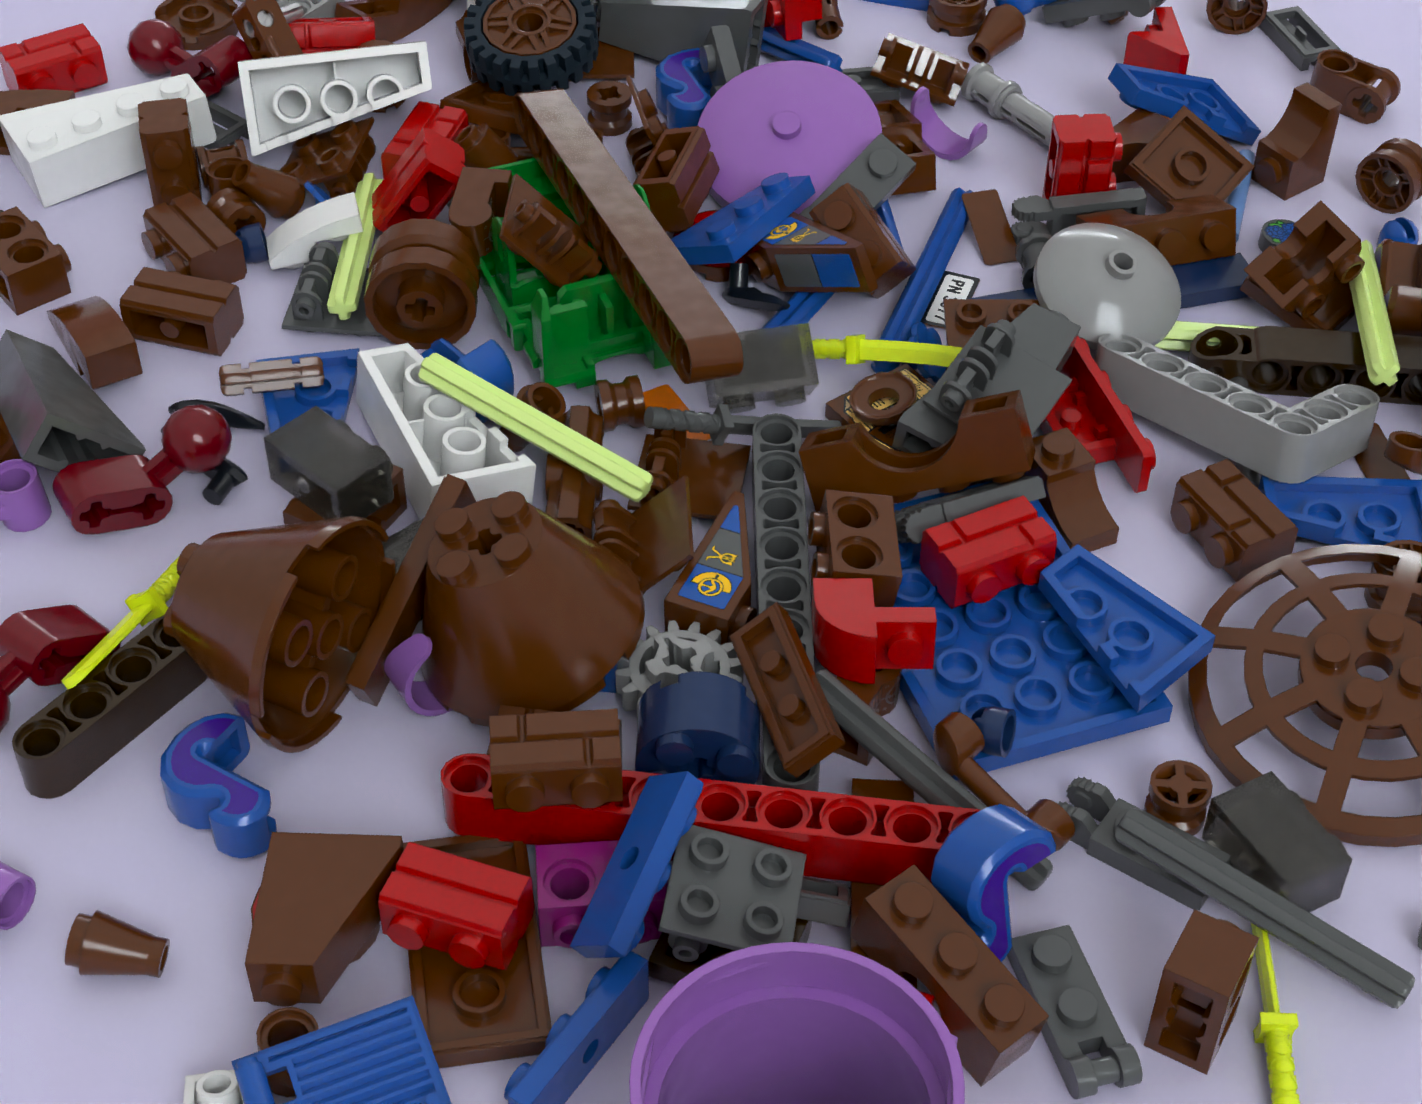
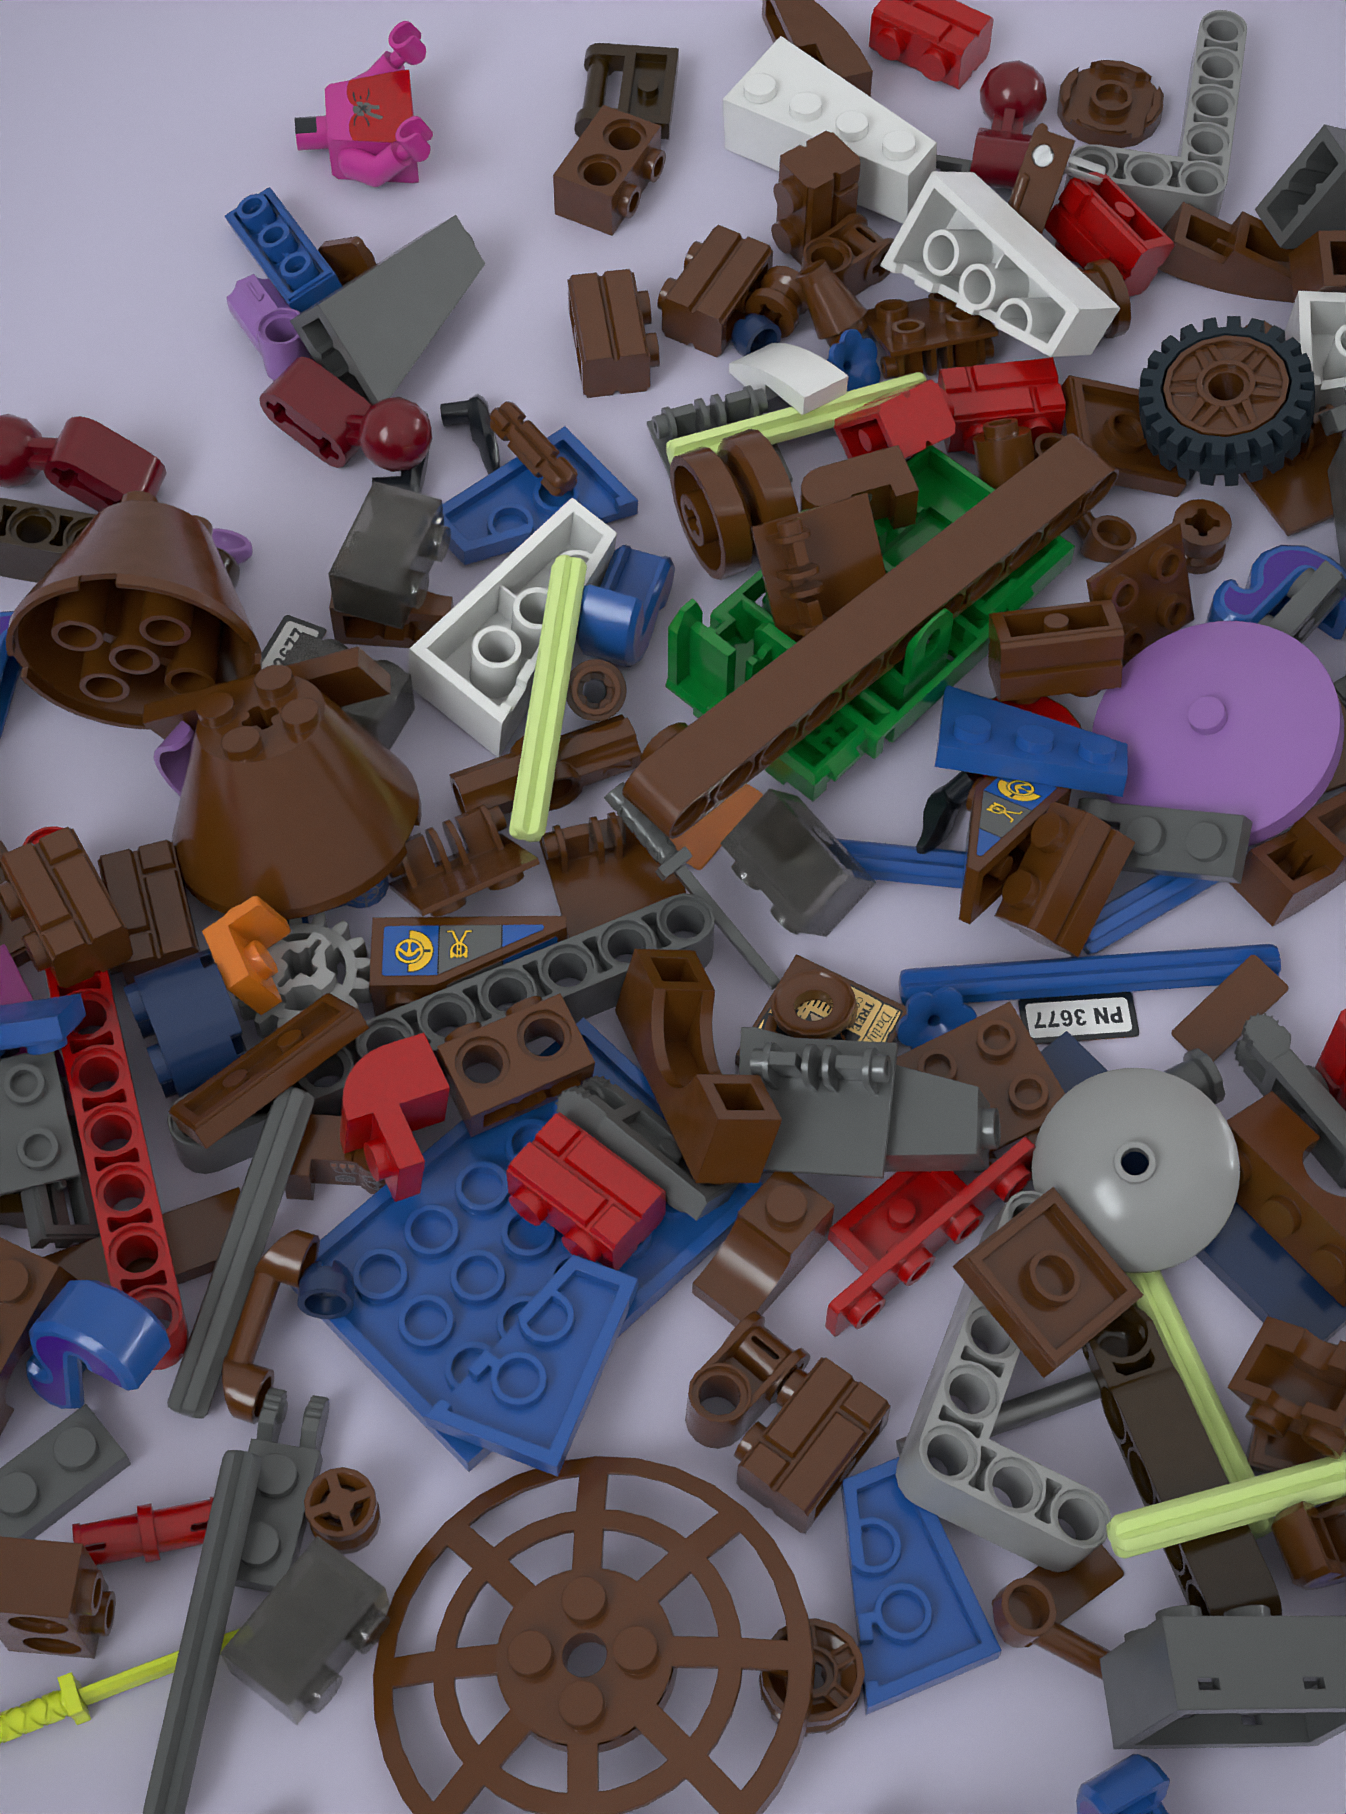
camera: 65 degrees right, 15 degrees up
(96, 341) = (526, 287): reddish brown slope -> none
(144, 608) = (216, 512): neon yellow sword -> none
(647, 670) = (241, 953): none -> orange bracket
(858, 350) = (891, 951): neon yellow sword -> none
(1146, 930) = (145, 1532): none -> red pin
(1166, 544) = (747, 1373): none -> reddish brown piece
(1177, 346) = (1048, 1281): none -> reddish brown tile

